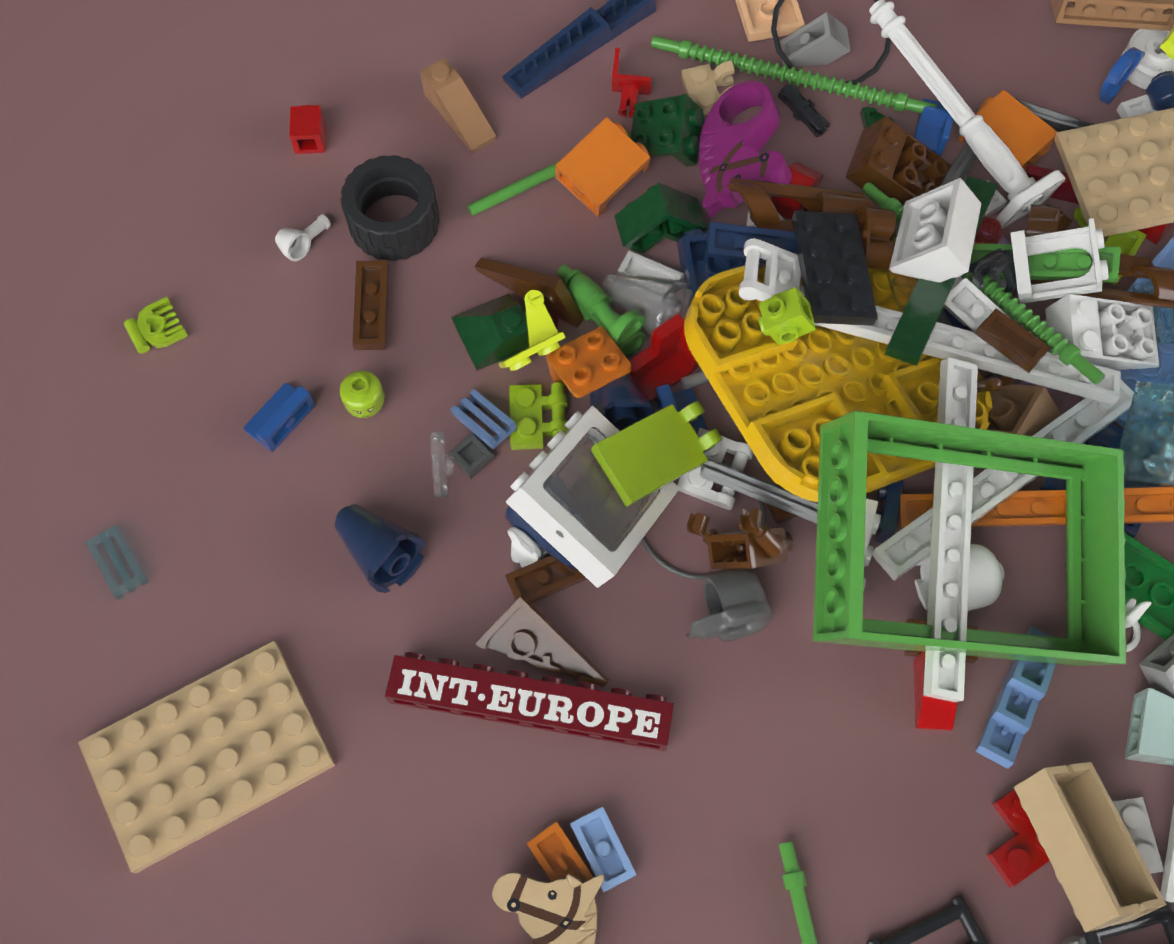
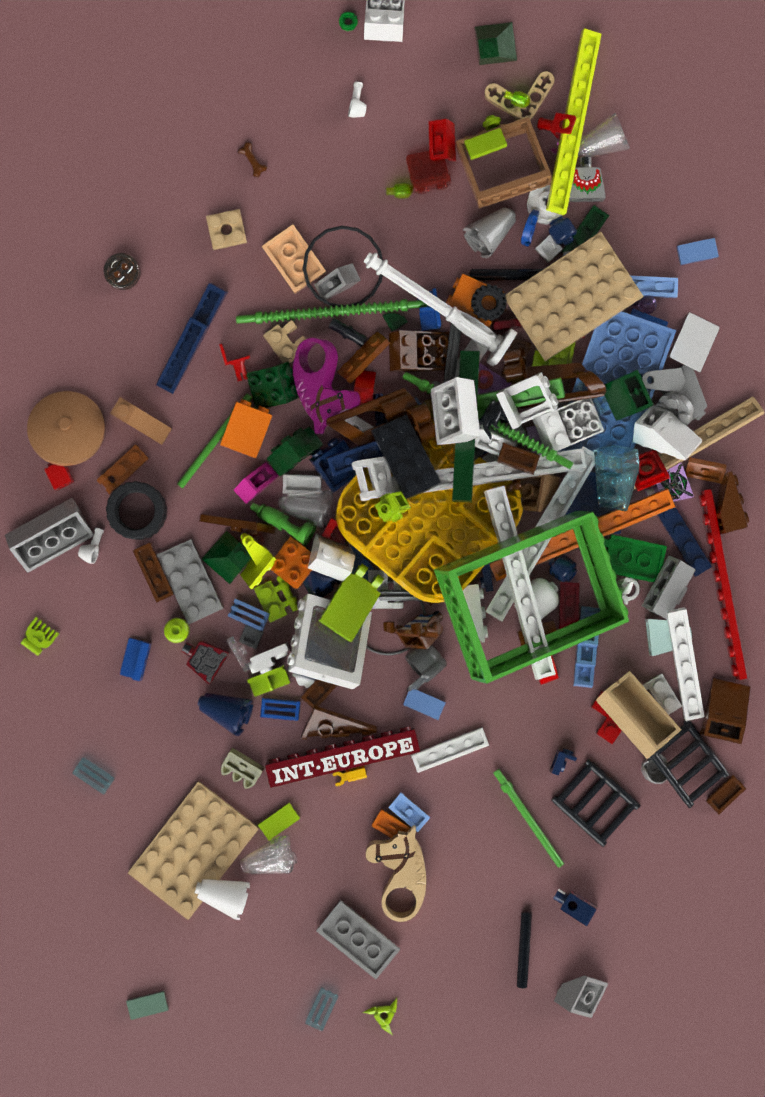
camera: 25 degrees left, 20 degrees up
(212, 851) = (224, 895): none -> white cone
(248, 198) = (49, 535): none -> light grey slope
(327, 821) = (270, 858): none -> clear cone
(349, 74) = (66, 428): none -> medium nougat dish
(357, 649) = (242, 768): none -> olive plate
(372, 767) = (279, 821): none -> lime tile
(385, 456) = (205, 659): none -> torso
(418, 342) = (189, 581): none -> light grey plate
(422, 151) = (123, 469): none -> dark orange plate
(466, 528) = (269, 681): none -> lime panel
(476, 485) = (264, 661): none -> white plate
(488, 598) = (279, 701): none -> blue tile
(530, 740) = (351, 775): none -> yellow bar
(581, 243) = (255, 482): none -> dark pink slope
(651, 371) = (331, 558): none -> white slope
(705, 674) = (424, 703): none -> medium blue tile
(718, 771) = (450, 749): none -> white tile
(818, 143) = (363, 357): none -> dark orange plate
(904, 878) = (558, 764): none -> dark blue bracket
(1010, 615) = (568, 603): none -> dark red plate
(1020, 550) = (562, 568): none -> dark blue head
(1038, 118) = (500, 302): none -> black tyre
(1057, 57) = (489, 231): none -> light grey cone

